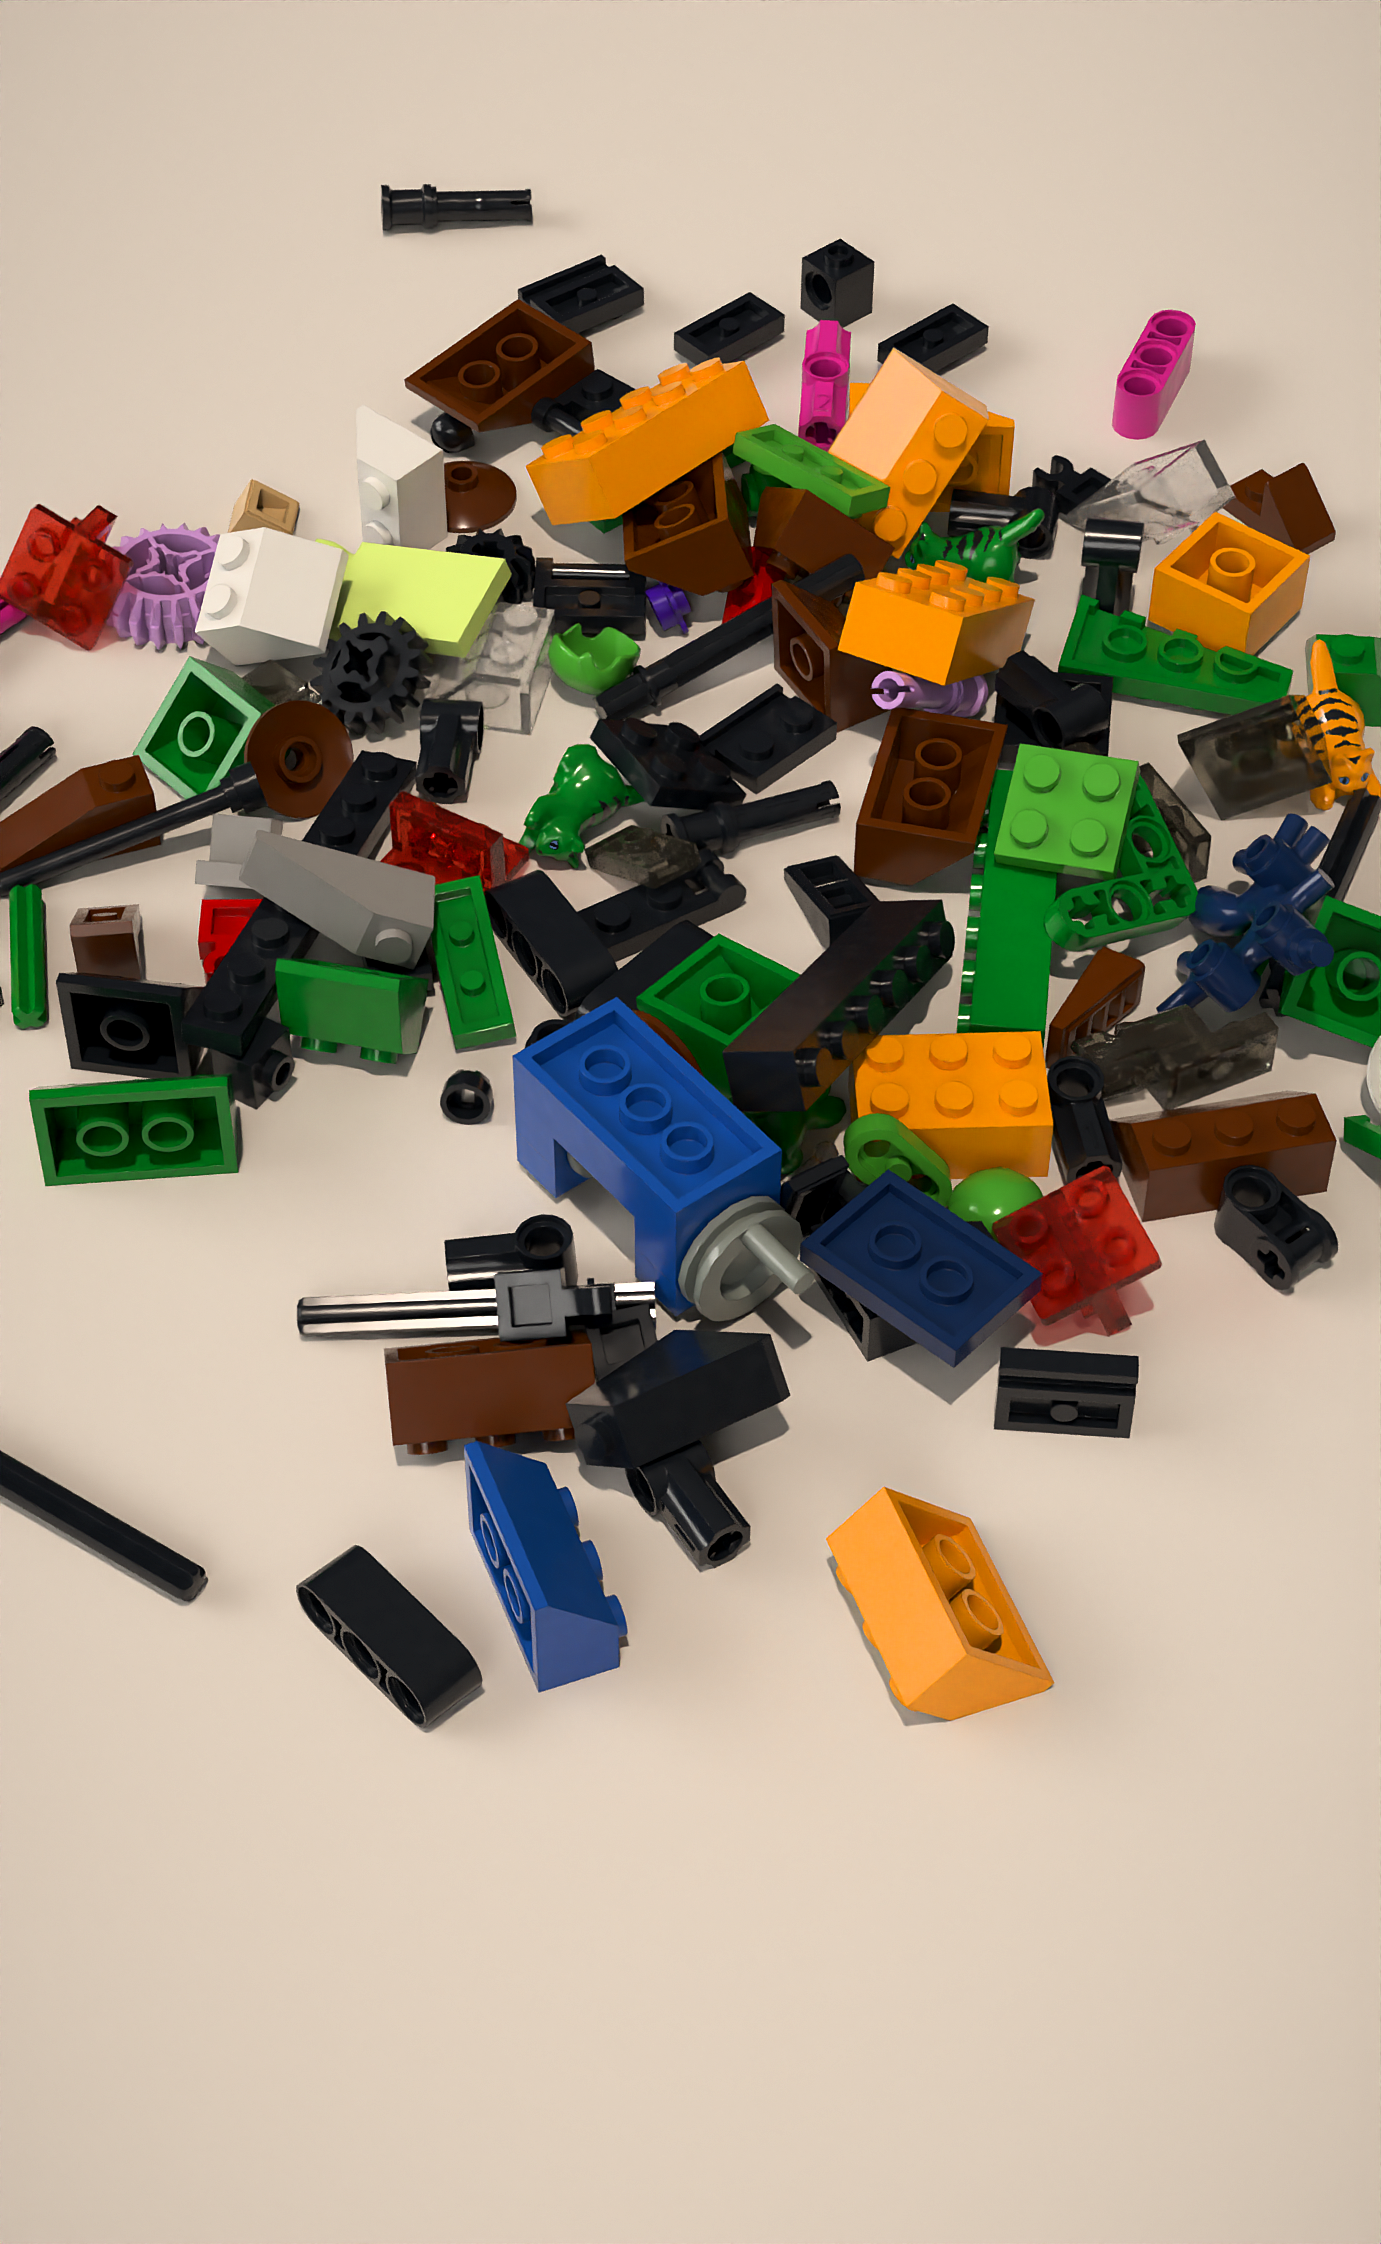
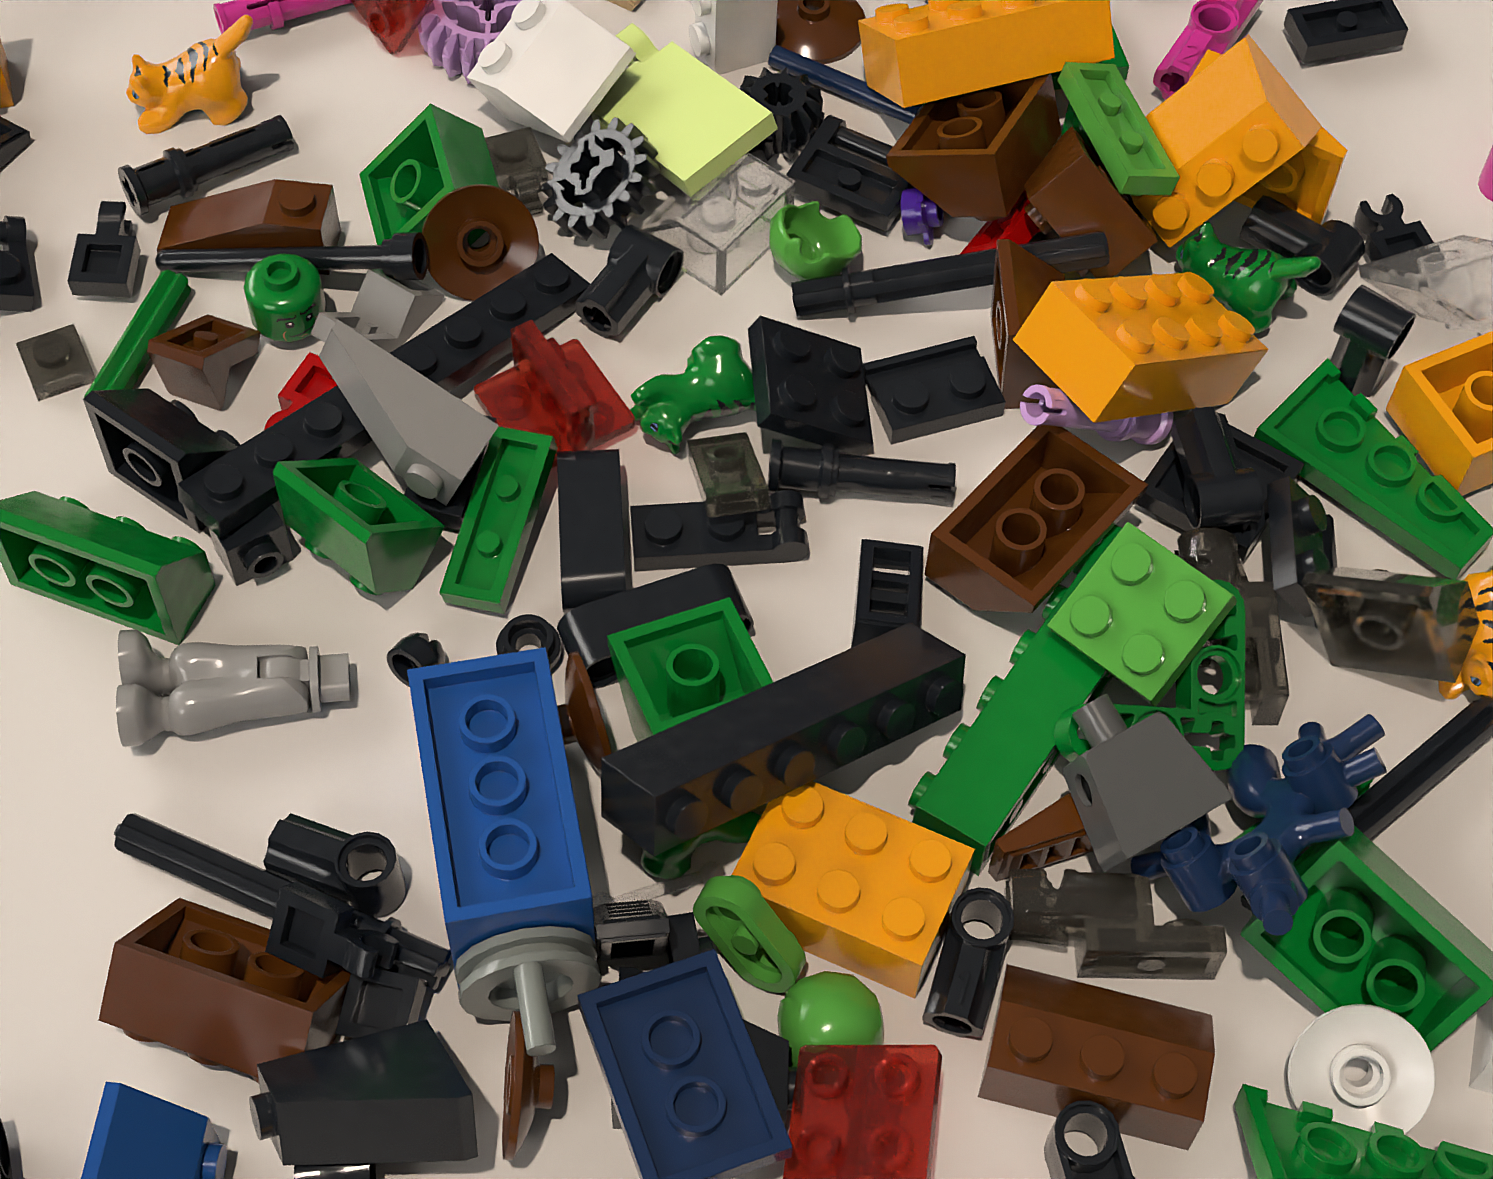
camera: 25 degrees right, 10 degrees up
(149, 865) = (284, 297): none -> green head
(307, 1177) = (219, 685): none -> light grey piece
(537, 533) = (839, 83): none -> dark blue bar
(796, 1334) = (526, 1088): none -> reddish brown dish
(1139, 931) = (1136, 782): none -> dark grey torso
(1152, 735) = (1300, 540): none -> black plate

